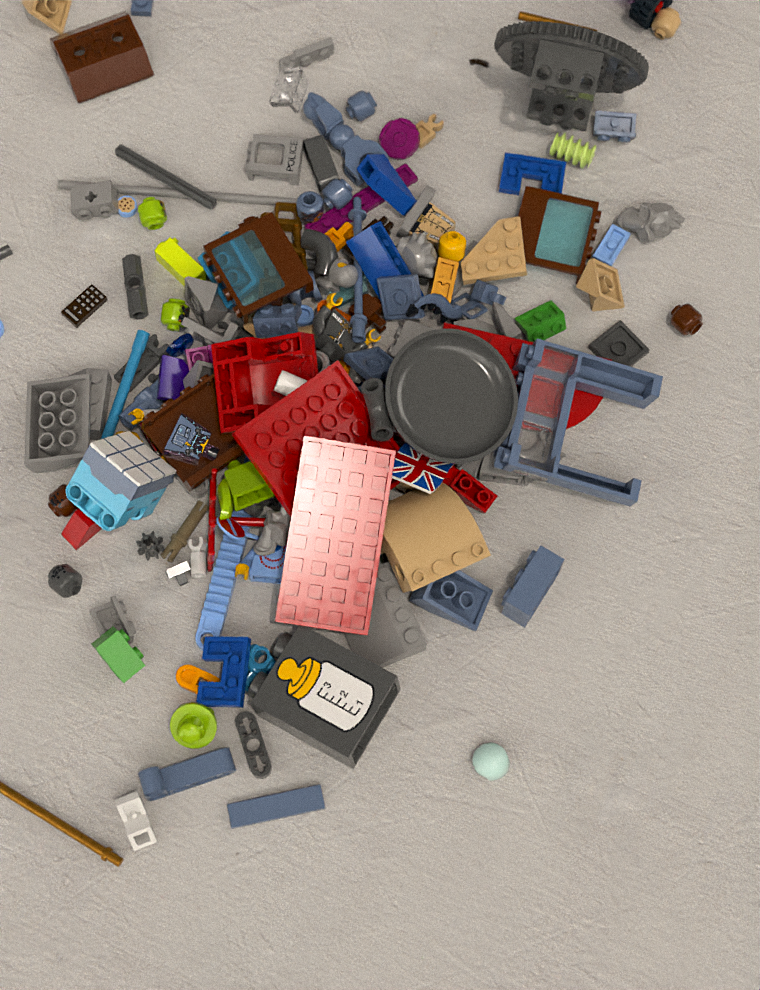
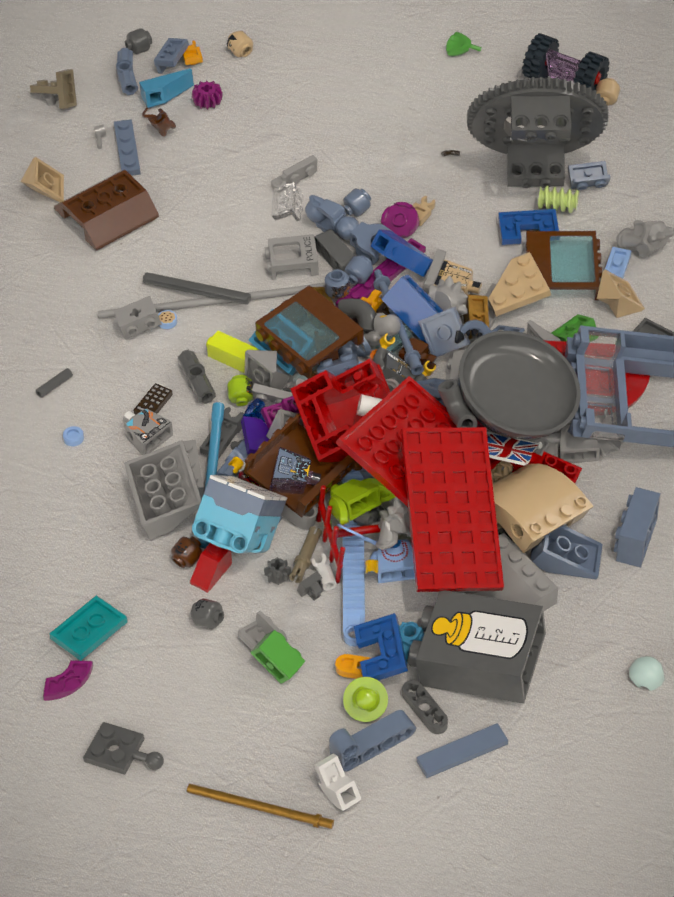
camera: 10 degrees left, 20 degrees down
(66, 341) = (147, 430): none -> light grey torso
(152, 213) = (194, 318): lime head -> none
(452, 246) = (477, 284): yellow head -> none
(487, 293) = (519, 317): sand blue piece -> none

